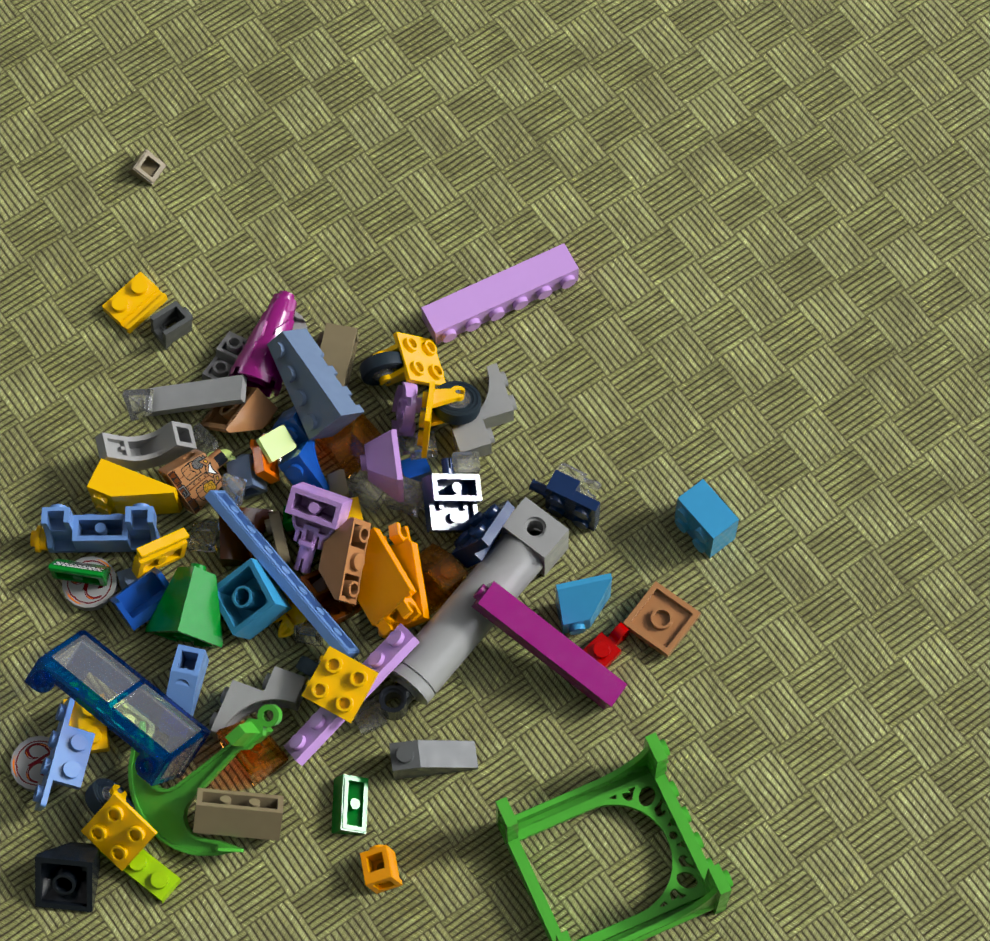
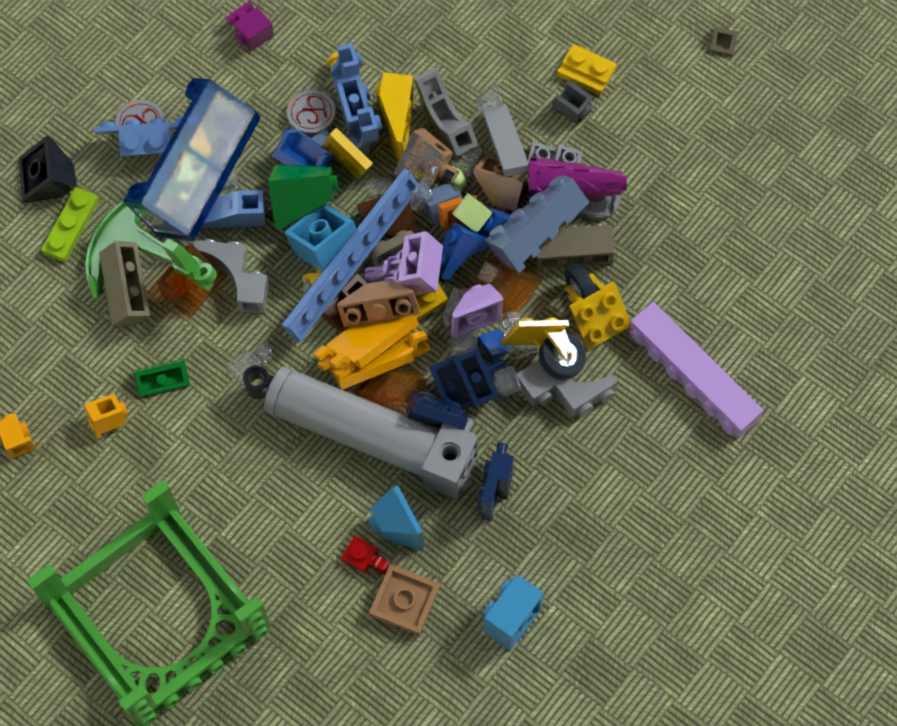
camera: 75 degrees right, 0 degrees up
(79, 572) = (316, 98): green slope -> none
(115, 824) = (106, 183): yellow plate -> none
(323, 722) = (255, 344): lavender plate -> none
(337, 682) = (256, 324): yellow plate -> none
(338, 483) = (456, 279): dark tan slope -> none
(406, 405) = (560, 311): lavender plate -> none
(432, 757) = (218, 431): slope -> none
(548, 644) = (341, 497): magenta brick -> none
(585, 483) = (525, 483): clear plate -> none

